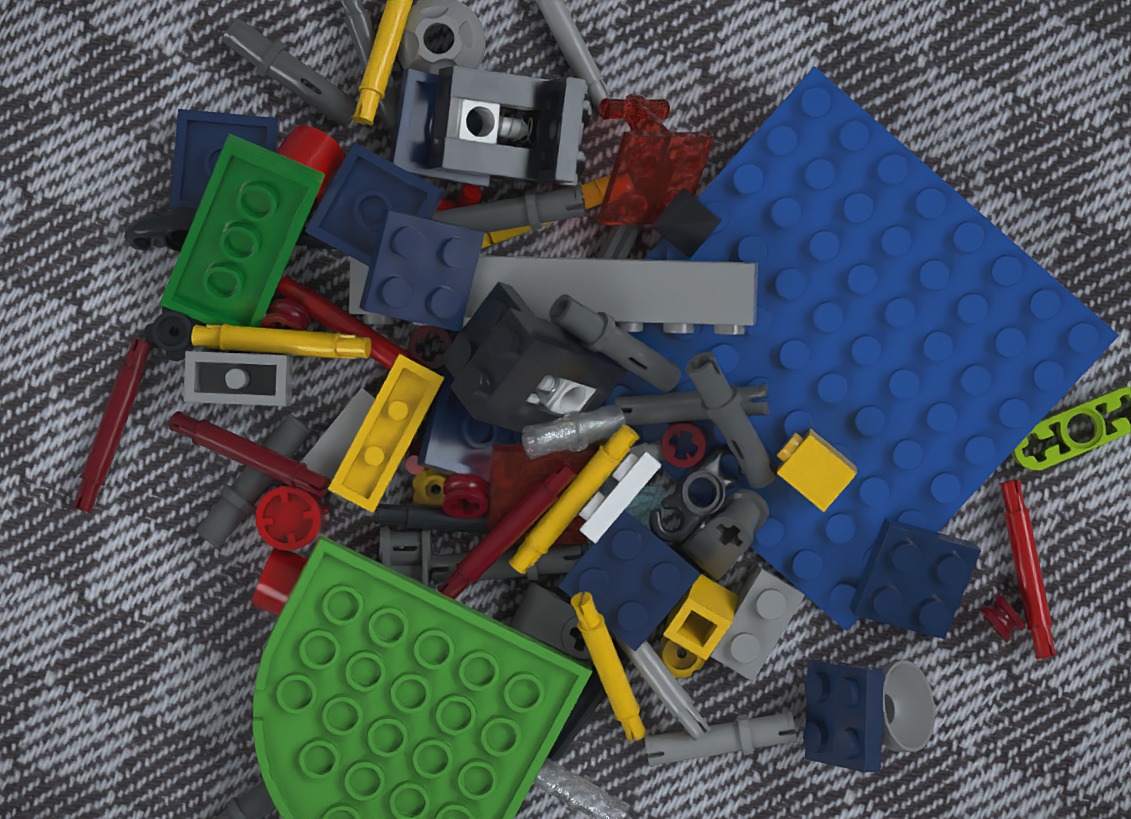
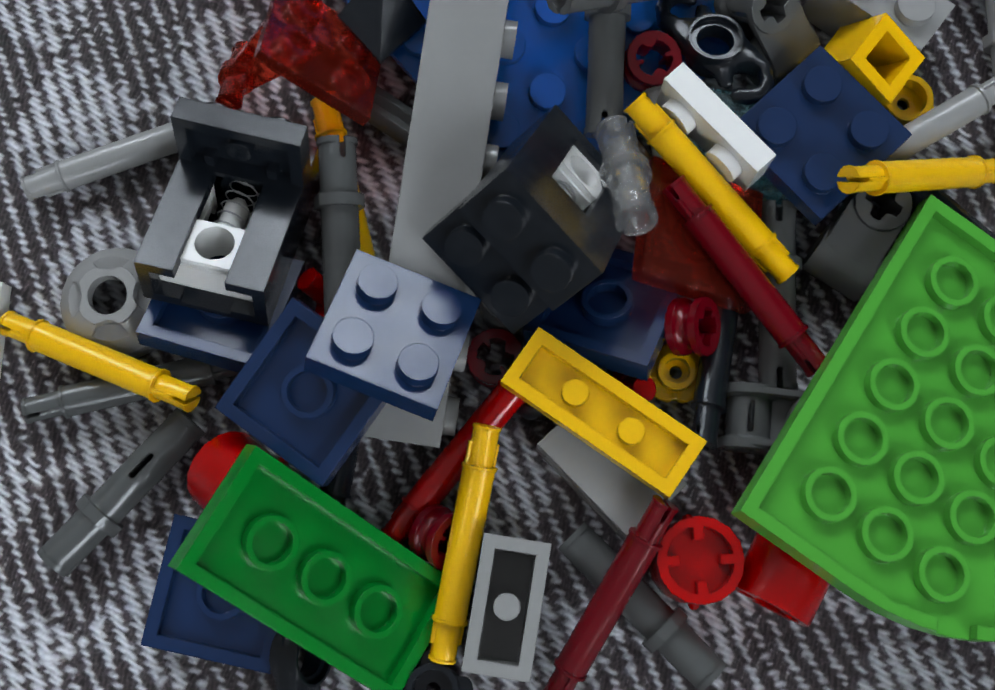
camera: 85 degrees left, 10 degrees down
(600, 334) = (507, 118): dark grey pin -> none

